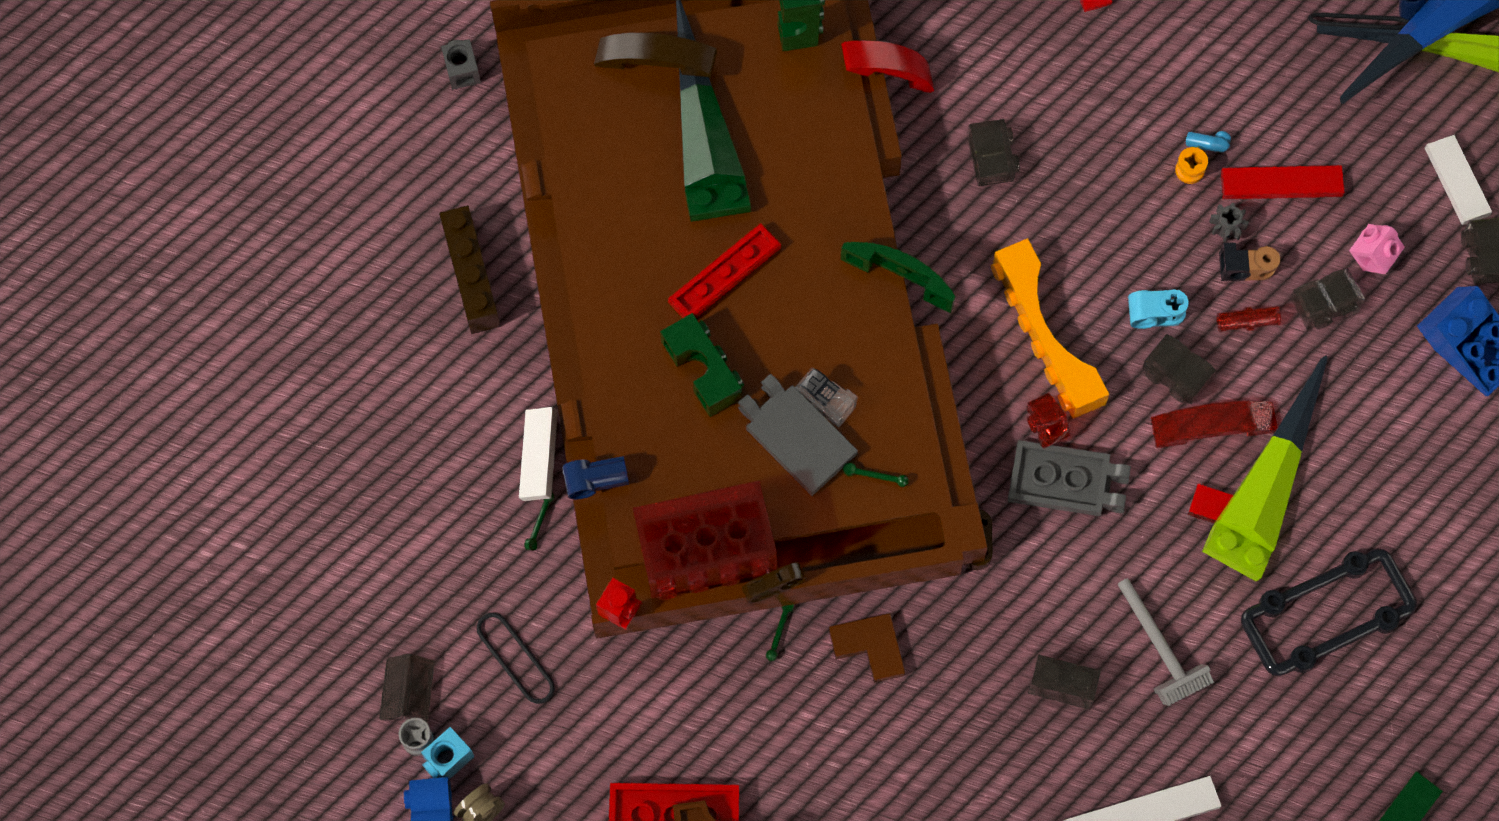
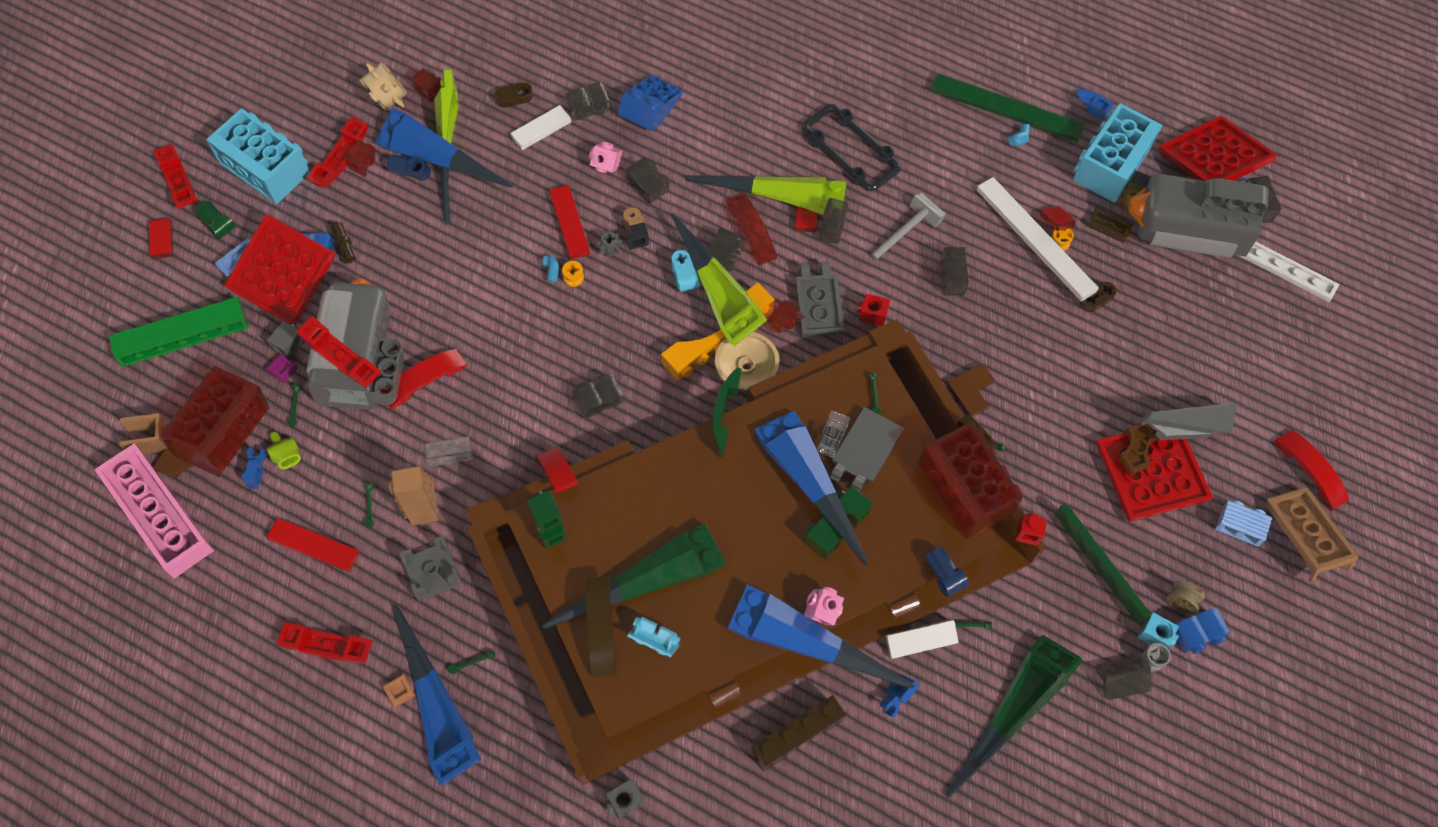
camera: 110 degrees left, 5 degrees down
(434, 571) = (1036, 683): none -> dark green plate
(479, 403) = (897, 694): none -> blue plate
(526, 650) = (1079, 614): black piece -> none
(562, 719) = (1102, 564): none -> dark green tile
(593, 256) = (774, 623): none -> blue plate
(594, 309) = (824, 606): none -> bright pink brick
(619, 110) = (644, 633): none -> medium azure hinge
(725, 272) = (760, 529): red tile -> none
(815, 339) = (795, 453): none -> blue plate
(991, 329) = (754, 352): none -> tan dish
(1029, 560) = (873, 317): none -> red brick
(1075, 340) = (733, 306): none -> lime plate
(1186, 528) = (833, 221): none -> clear smoke brick
(1248, 318) = (669, 221): clear red pin -> none
(1357, 25) = (432, 198): black piece -> none

